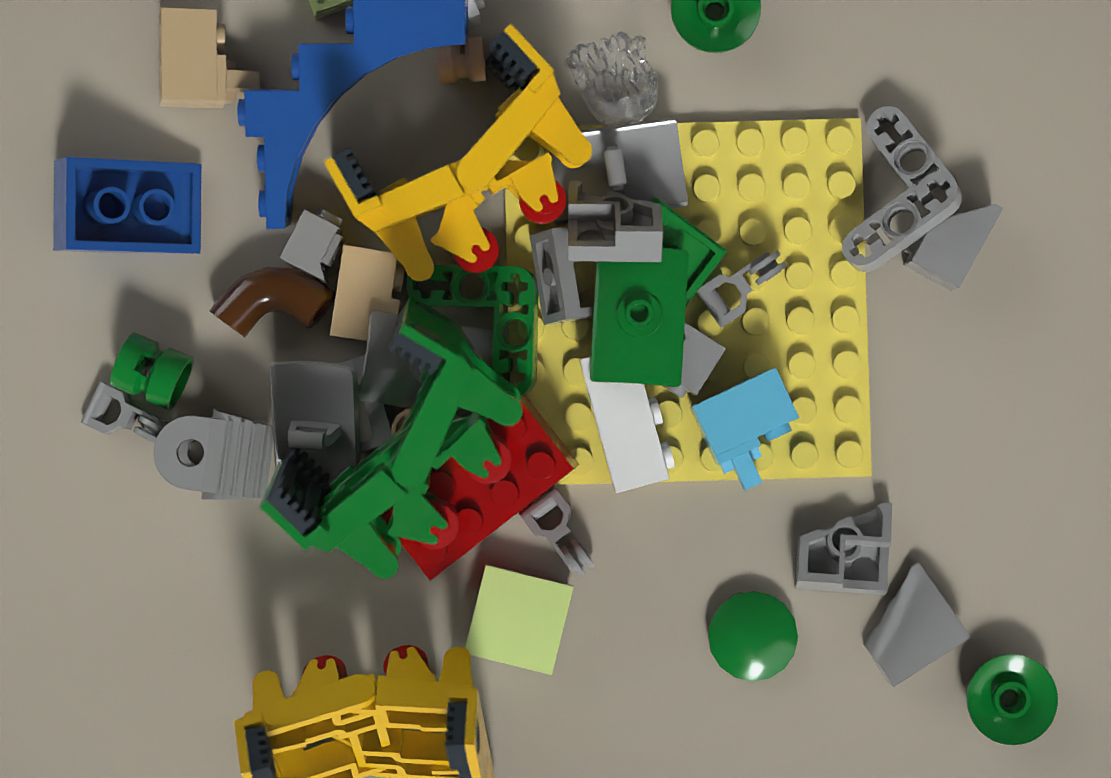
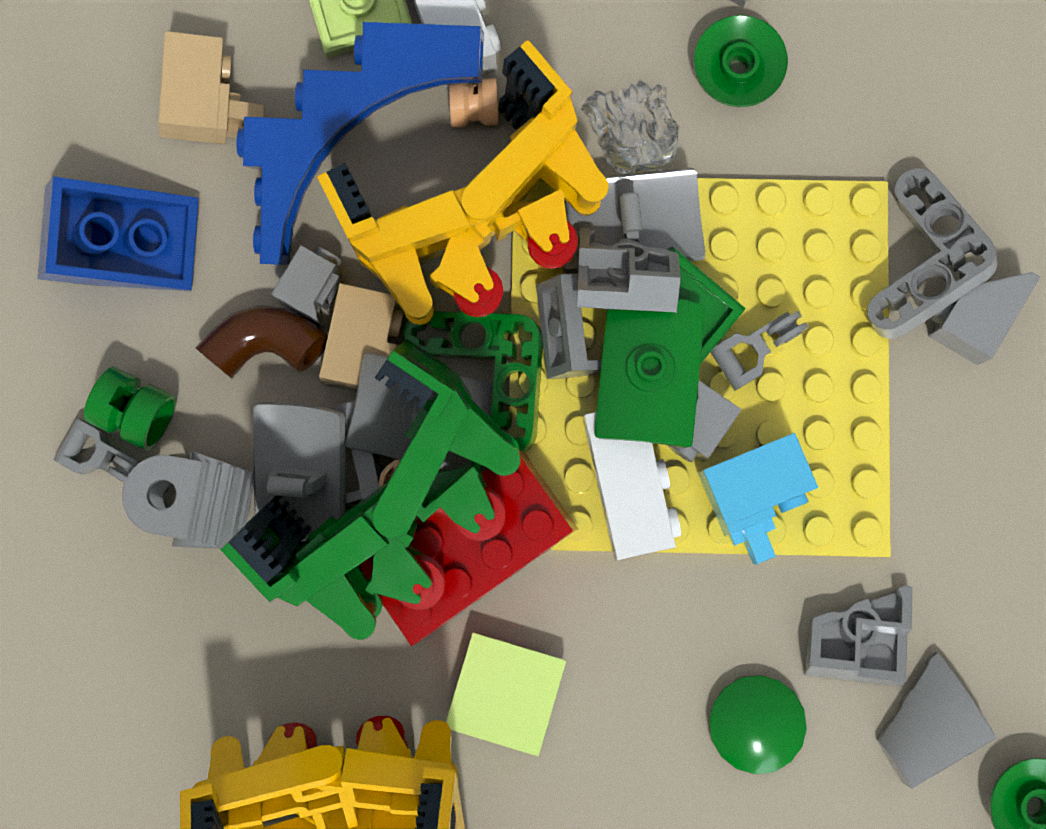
camera: 10 degrees right, 5 degrees down
(573, 558) = (569, 629): light grey piece -> none

